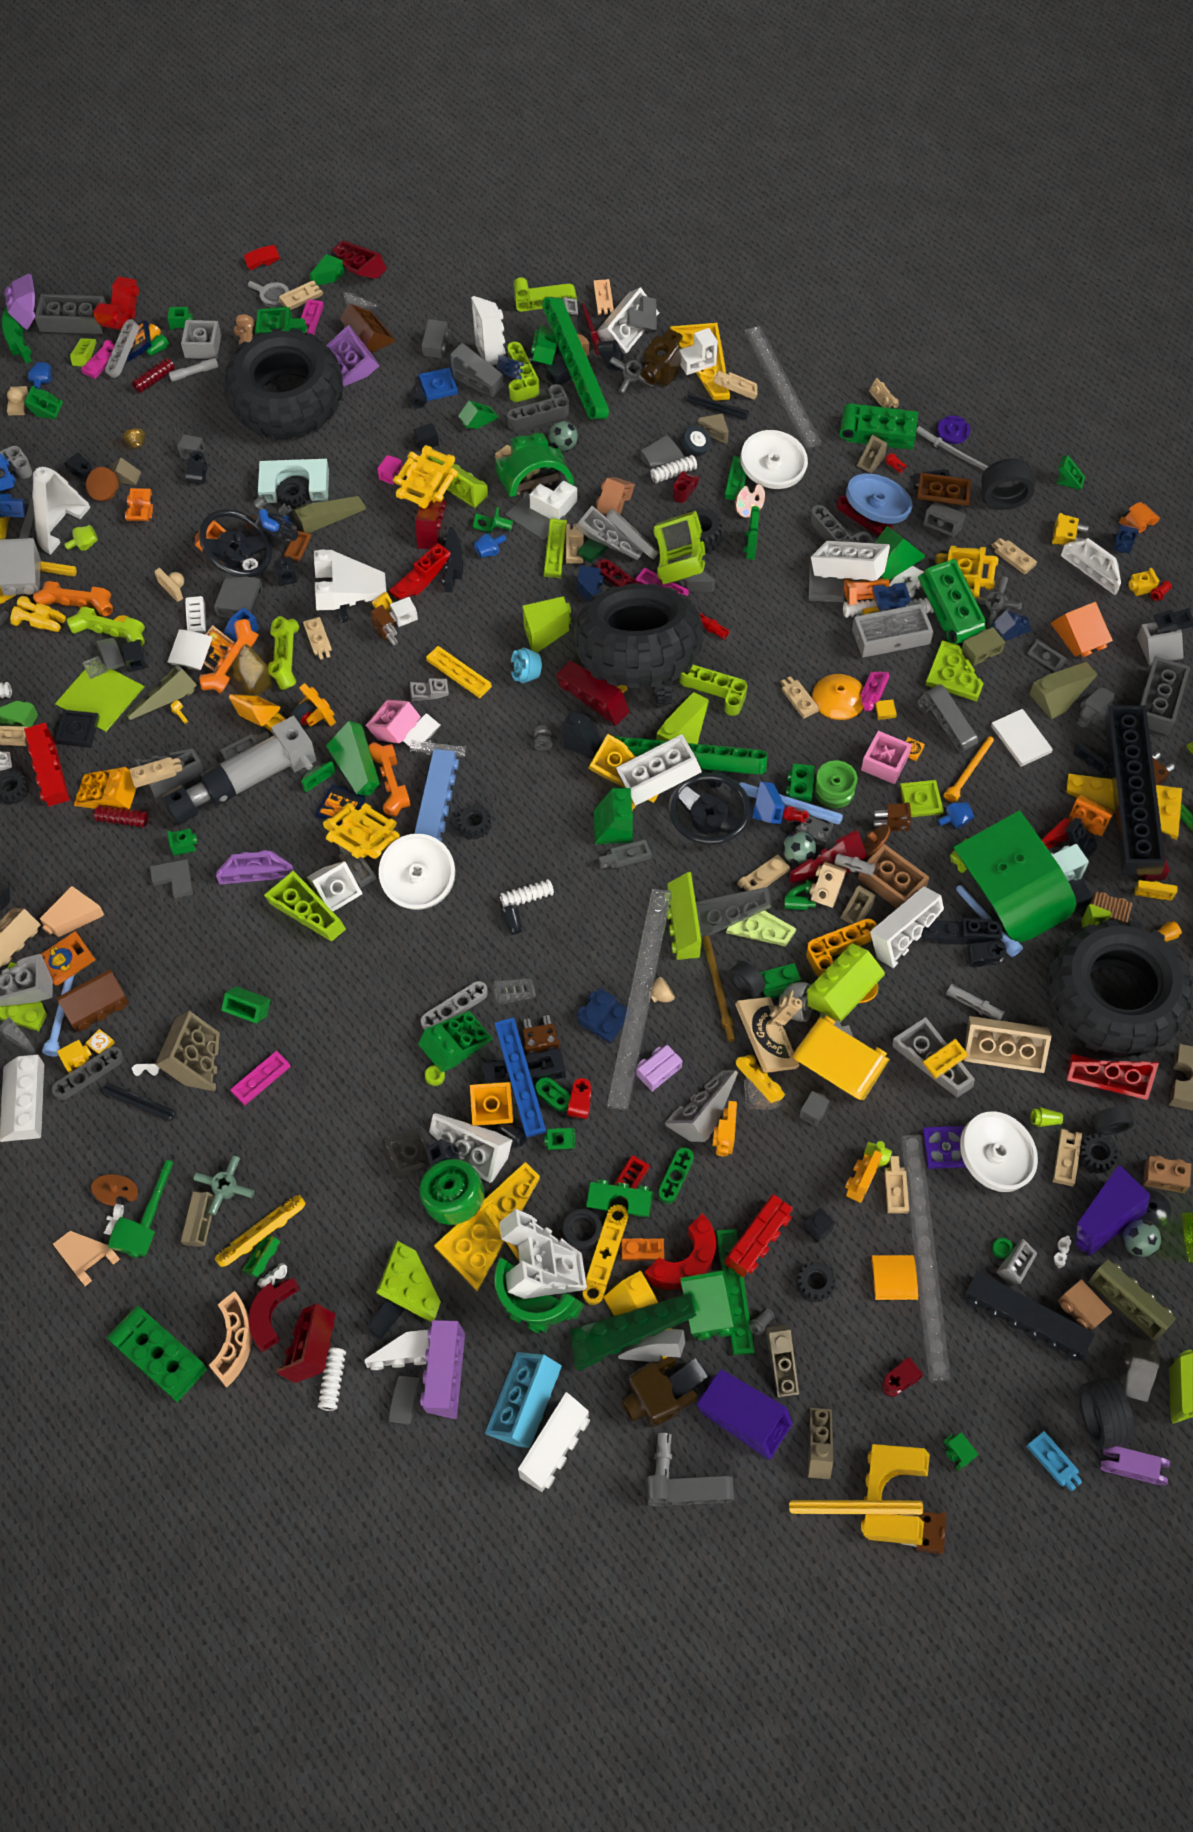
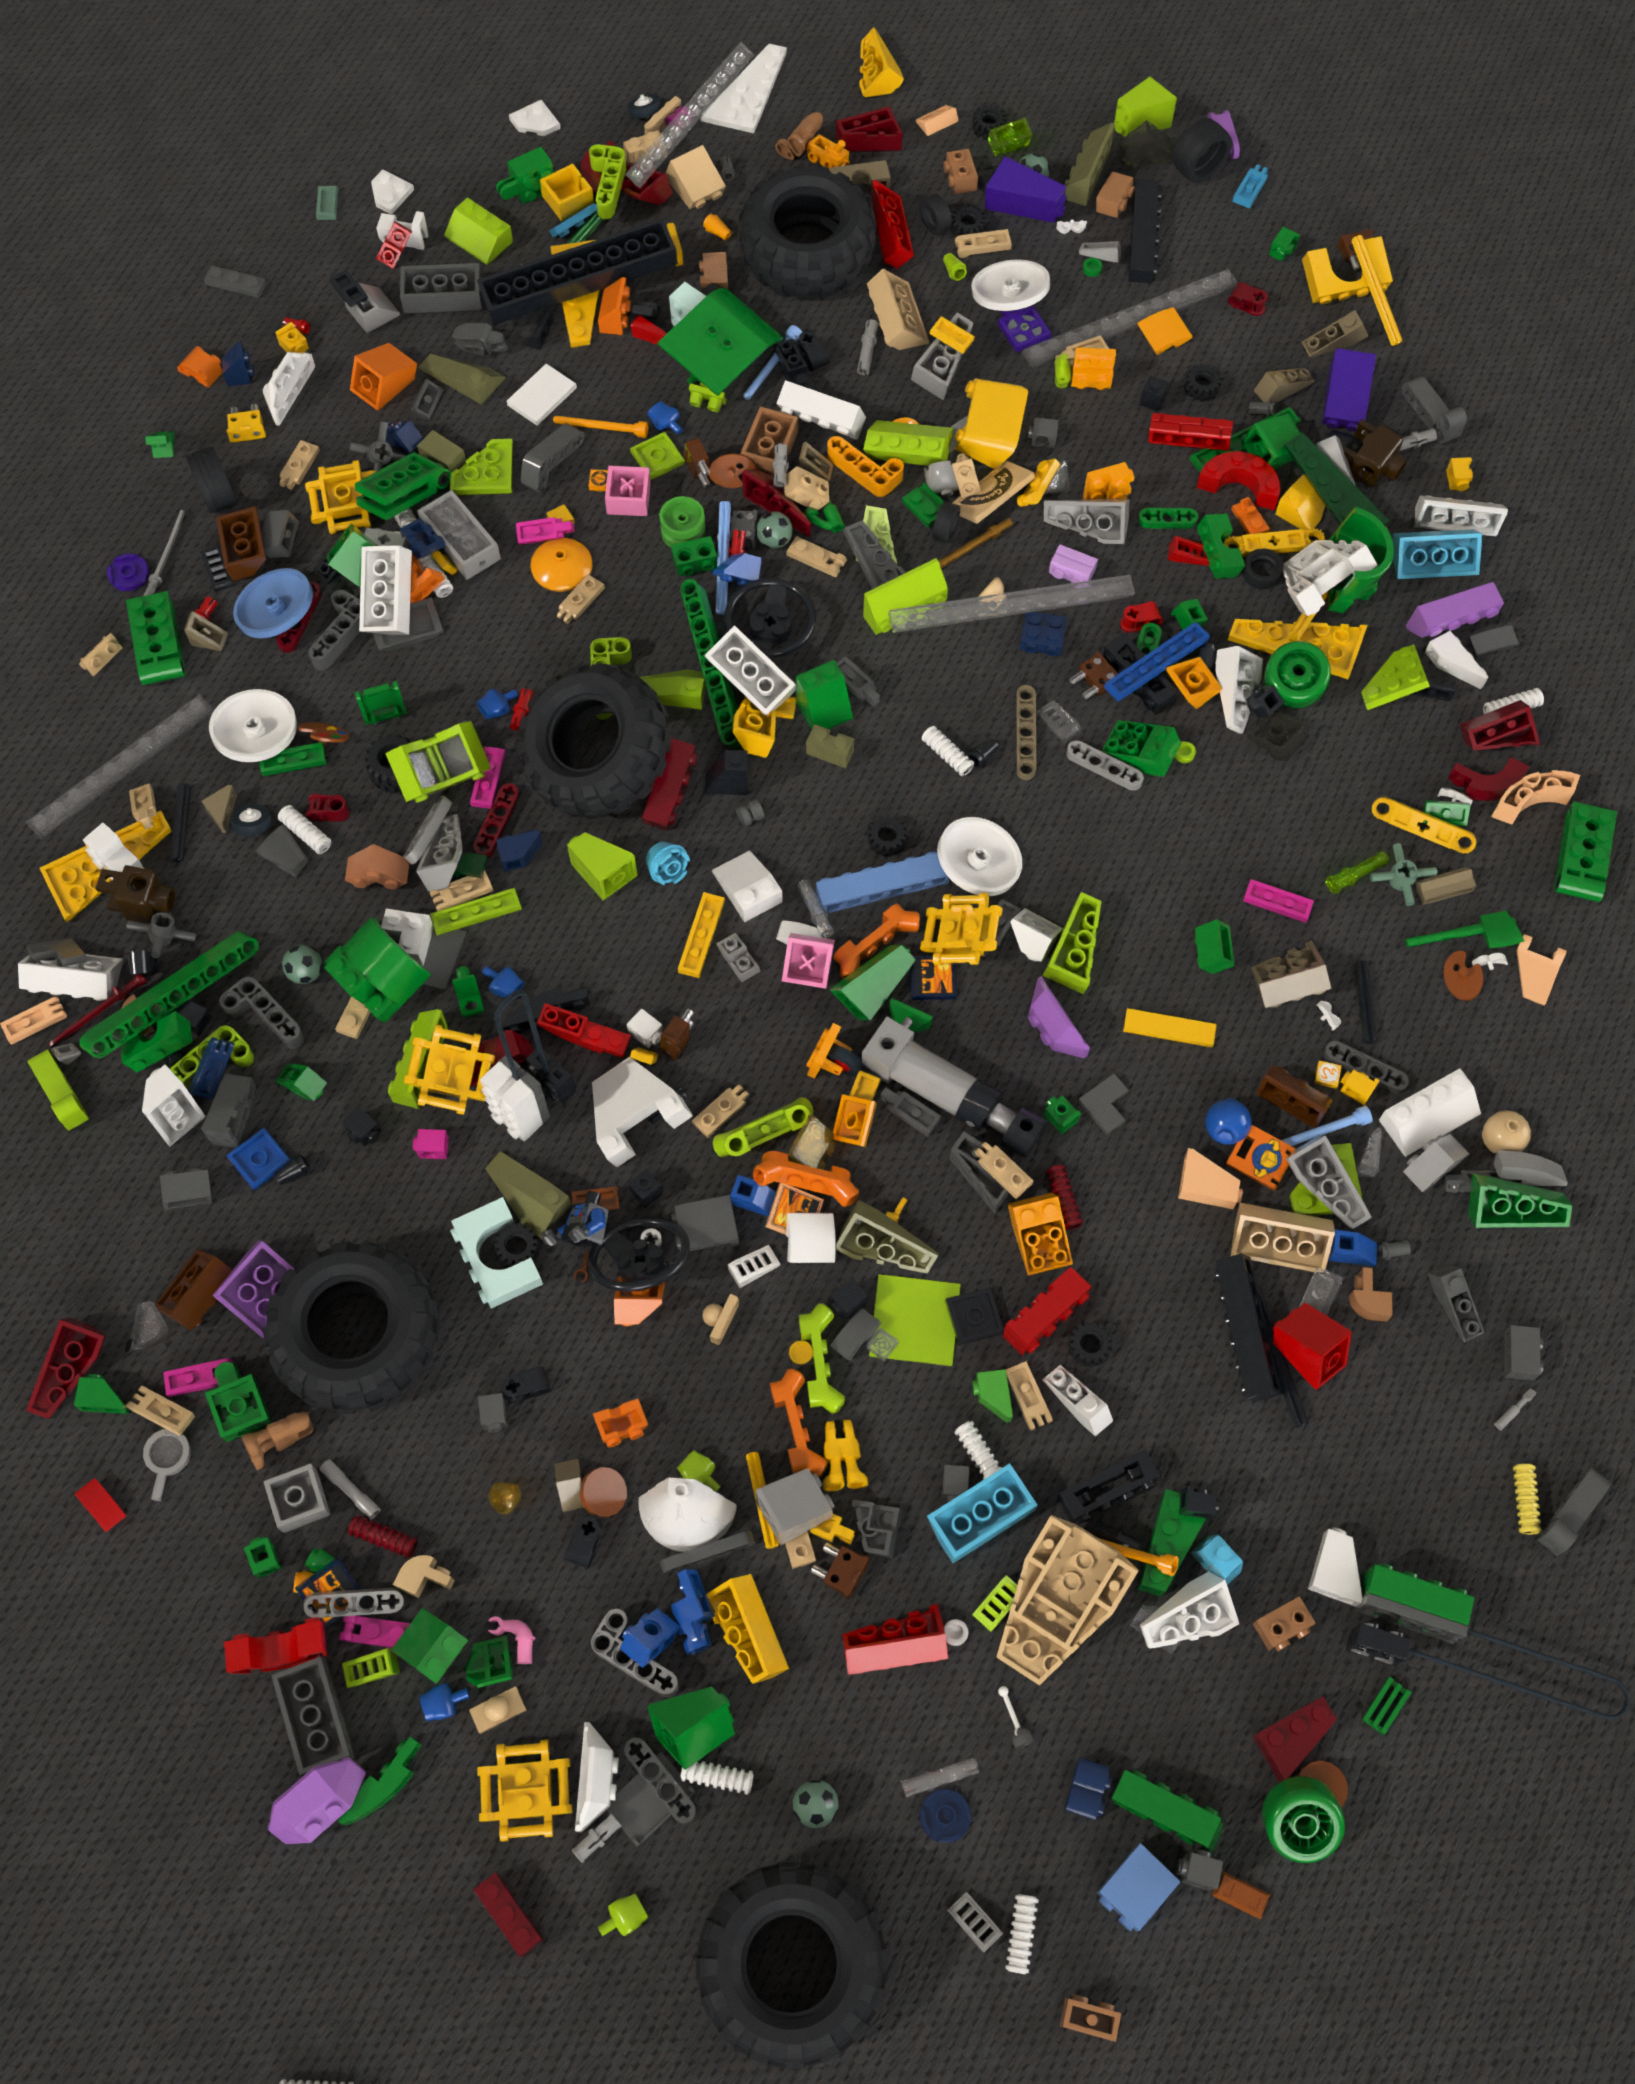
camera: 115 degrees left, 5 degrees up
(51, 423) = (523, 1636): none -> bright pink piece
(67, 370) = (429, 1645): none -> green slope
(103, 944) = (1228, 1121): none -> blue brick
(117, 386) = (418, 1571): none -> tan brick
(205, 948) = (1169, 1027): none -> yellow tile
(247, 1144) = (1349, 876): none -> clear neon green pin
(383, 503) = (515, 1094): none -> piece
(483, 714) = (748, 885): none -> white slope
(522, 968) = (1025, 723): none -> dark tan beam
(568, 811) = (830, 748): none -> olive brick
(600, 1474) = (1459, 473): none -> yellow brick
(725, 609) = (495, 704): none -> blue piece
(1094, 915) = (738, 274): lime slope -> none

